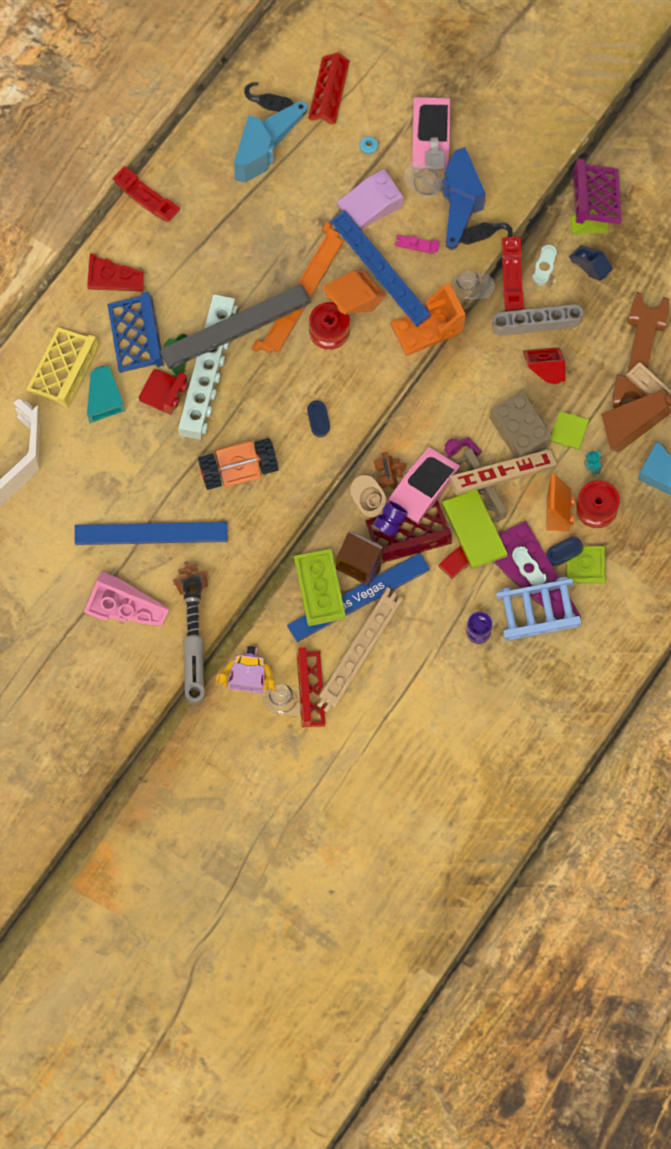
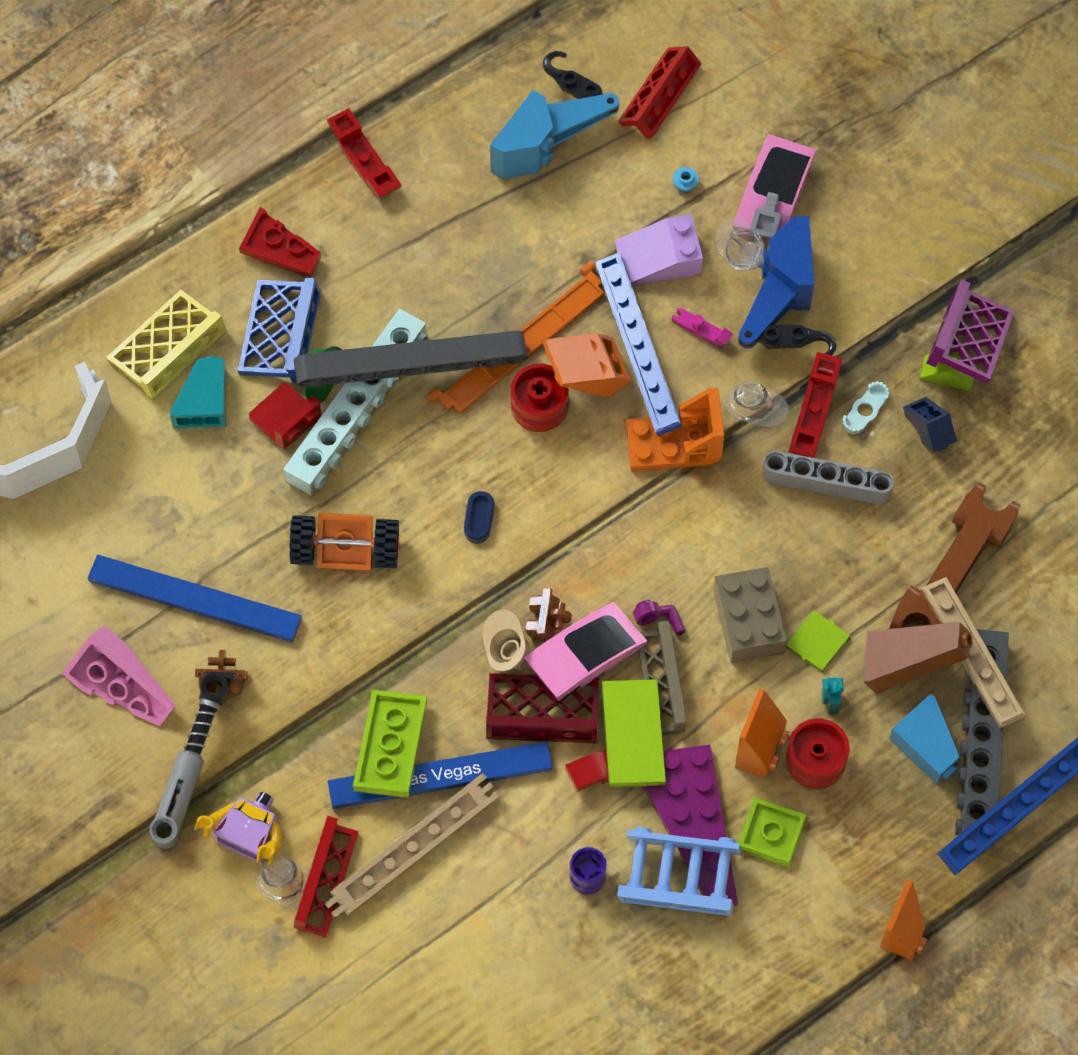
camera: 20 degrees right, 5 degrees down
(359, 558) = (458, 721): reddish brown slope -> none
(391, 517) = (523, 677): dark purple wheel -> none
(502, 472) = (700, 667): tan tile -> none
(521, 558) = (684, 793): light aqua piece -> none
(547, 364) = (817, 541): red slope -> none
(565, 551) = (748, 803): dark blue tile -> none

